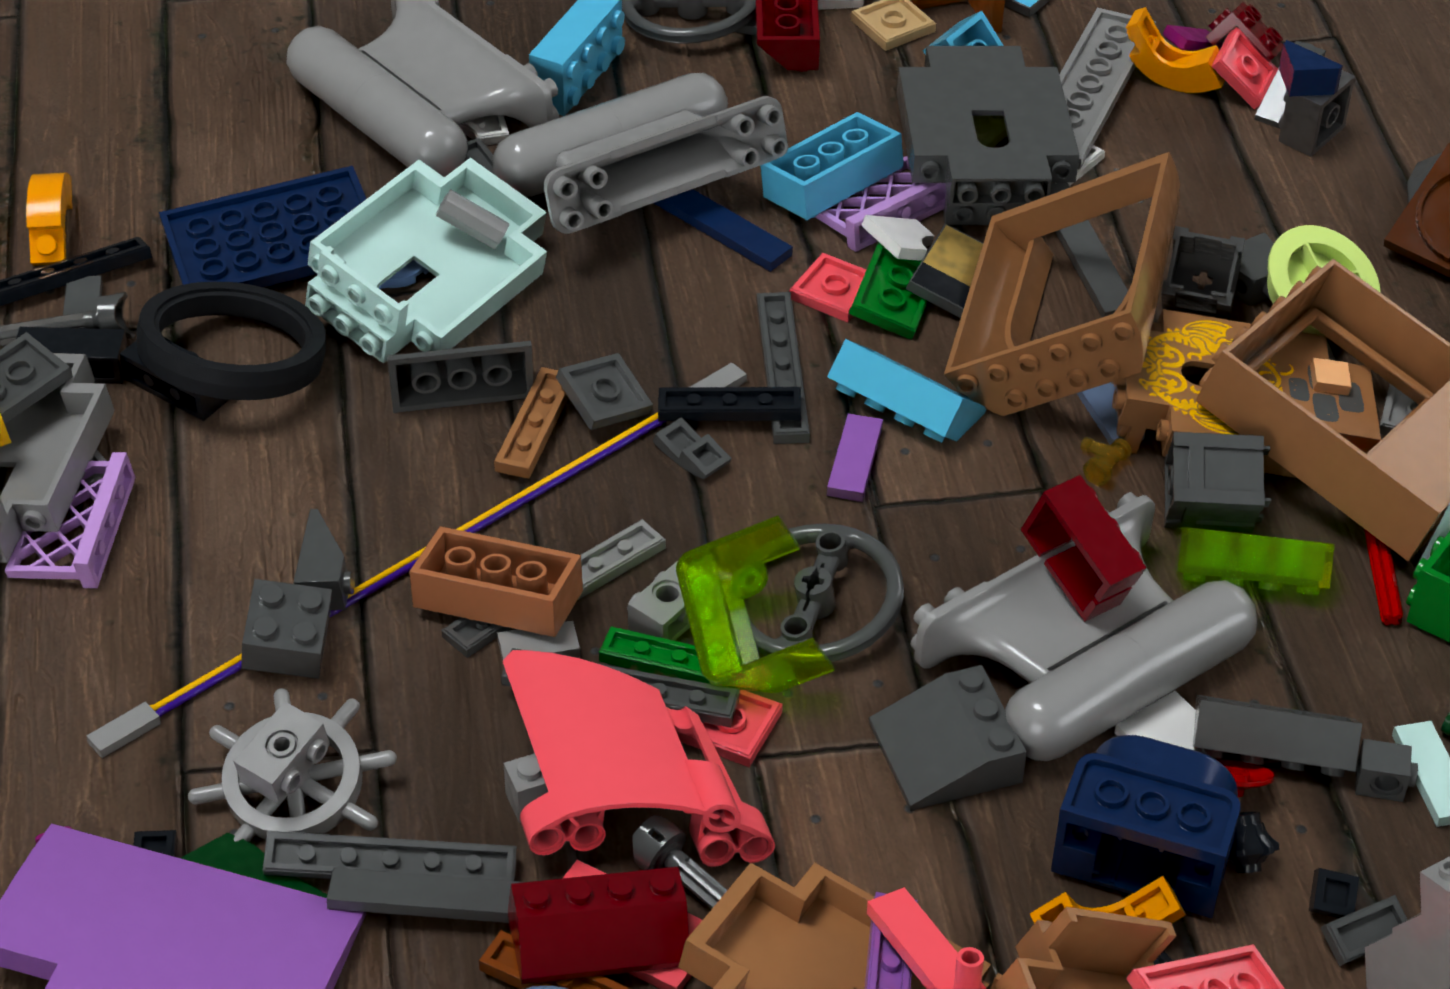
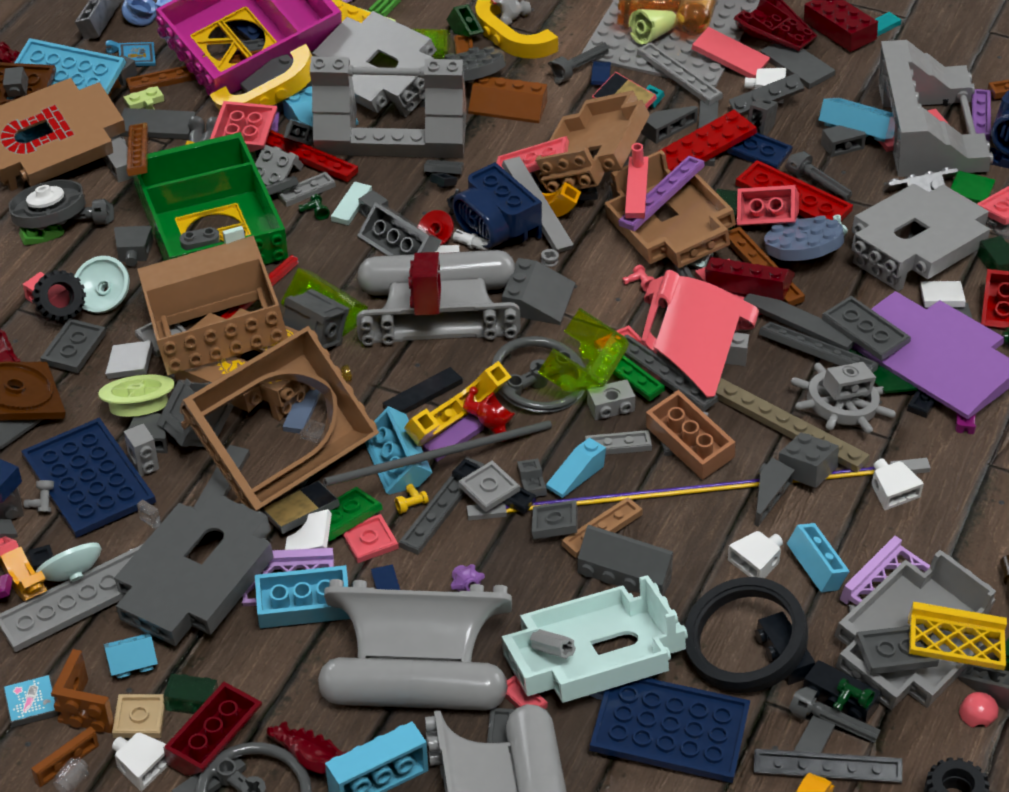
camera: 145 degrees left, 0 degrees up
(58, 323) = (846, 690): none -> dark green piece
(129, 668) = (895, 484): none -> white torso
(191, 493) = (818, 557): none -> medium azure brick
(288, 473) = (756, 554): none -> white torso
(317, 910) = (866, 328): none -> dark grey tile
(377, 699) = (785, 422): none -> dark tan plate
(631, 479) = (578, 467): none -> medium azure slope
(657, 275) = (465, 576): none -> medium lavender rock
(673, 49) = (306, 748): none -> dark red animal
(729, 383) = (489, 486): none -> light grey tile
(783, 858) = (639, 273): none -> coral piece
(818, 481) = (489, 411): none -> red piece
(827, 374) = (413, 459): none -> dark grey piece
(832, 335) = (402, 504): none -> yellow piece
(855, 47) = (187, 692): none -> clear green brick
(879, 487) = (428, 424): none -> yellow arch
(963, 501) = (424, 391): none -> black tile
(1007, 828) = (549, 257): none -> light grey bush
(1104, 886) = (551, 225): none -> light grey tile
(1135, 74) = (71, 563): none -> light aqua dish
(1188, 97) = (40, 555): none -> black plate
(1224, 214) = (141, 449): none -> light grey brick
(1256, 191) = (90, 476): none -> dark blue plate
(1281, 144) = (42, 503): none -> light grey piece

